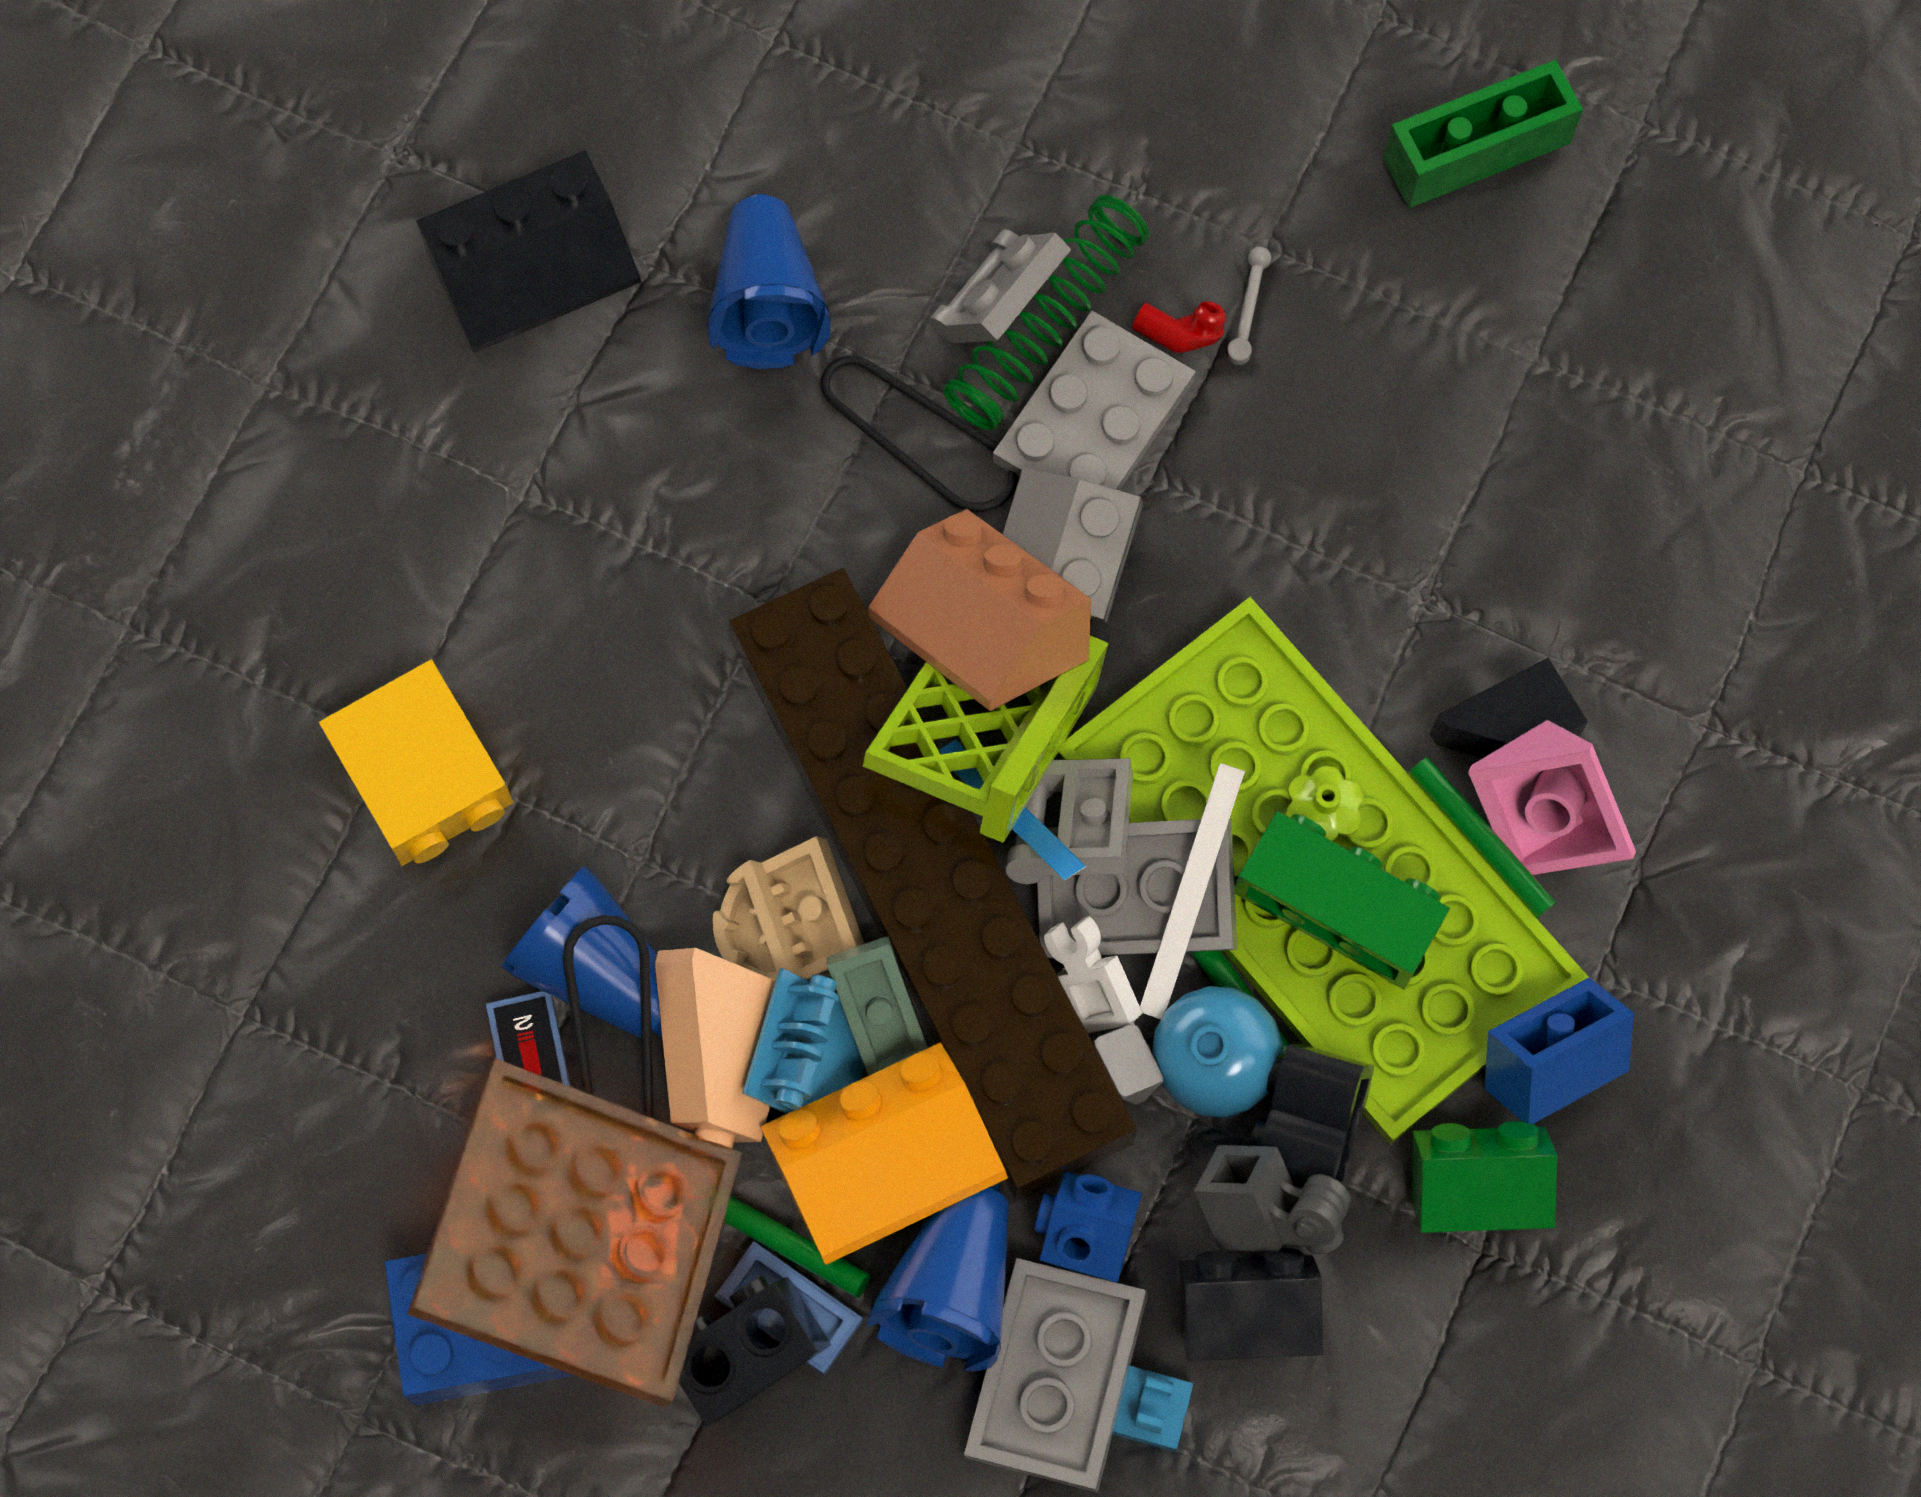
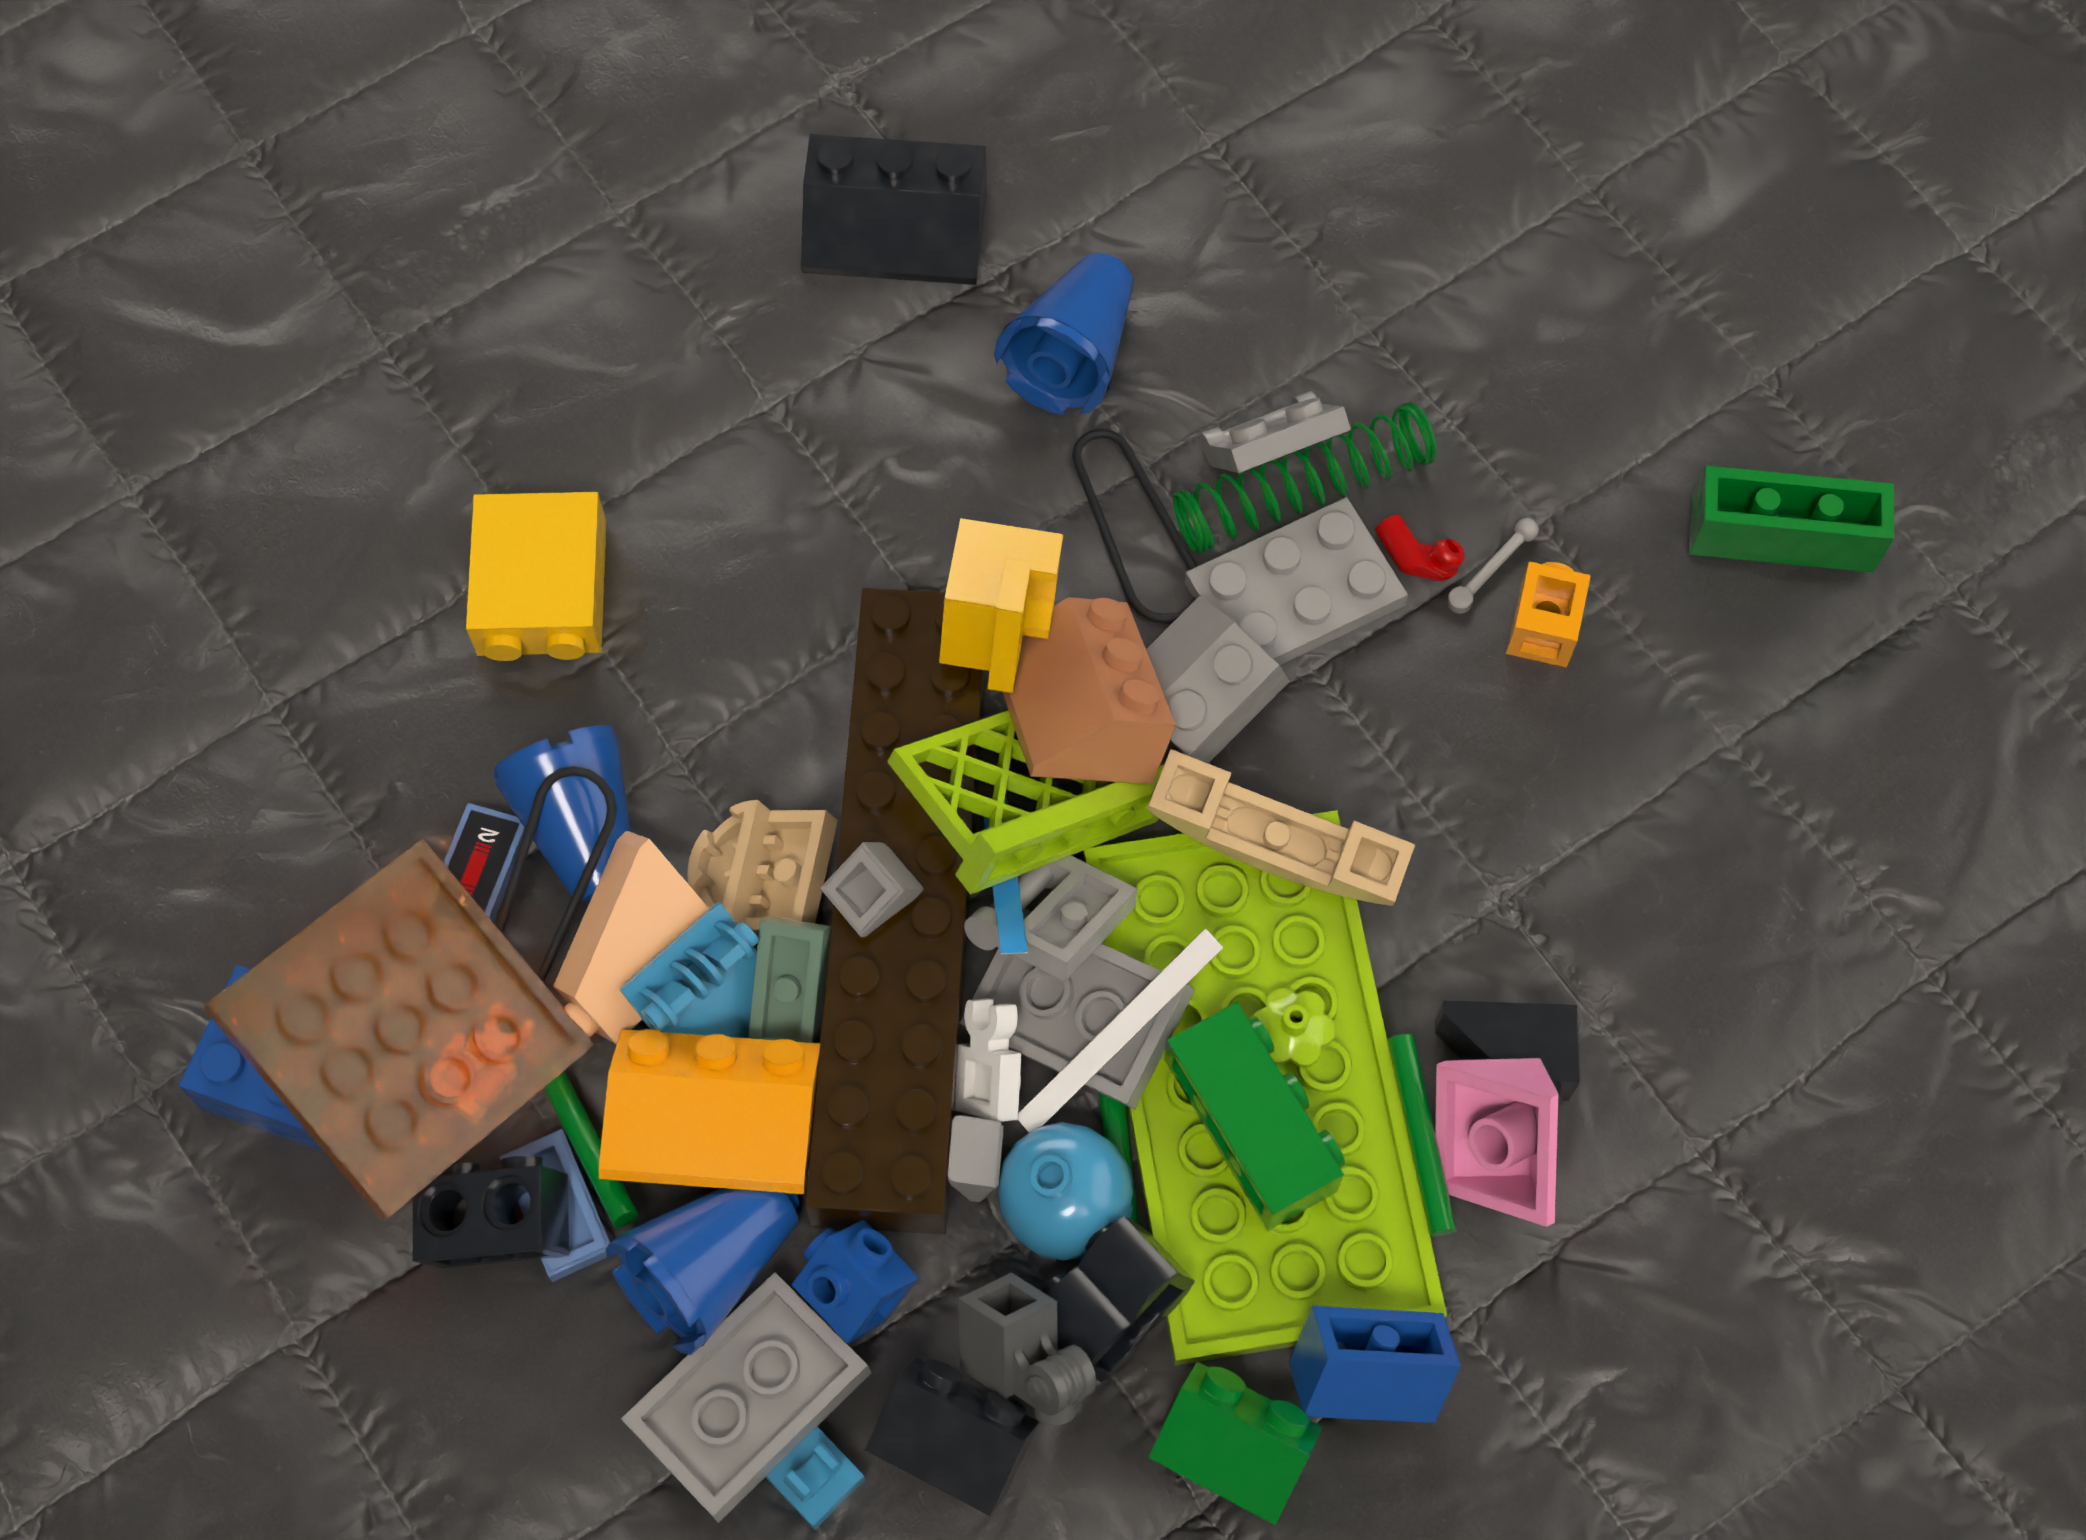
camera: 30 degrees right, 5 degrees down
(867, 568) = (995, 594): none -> yellow plate
(908, 883) = (871, 887): none -> light grey slope
(1220, 647) = (1277, 837): none -> tan slope
(1331, 303) = (1548, 613): none -> light orange brick

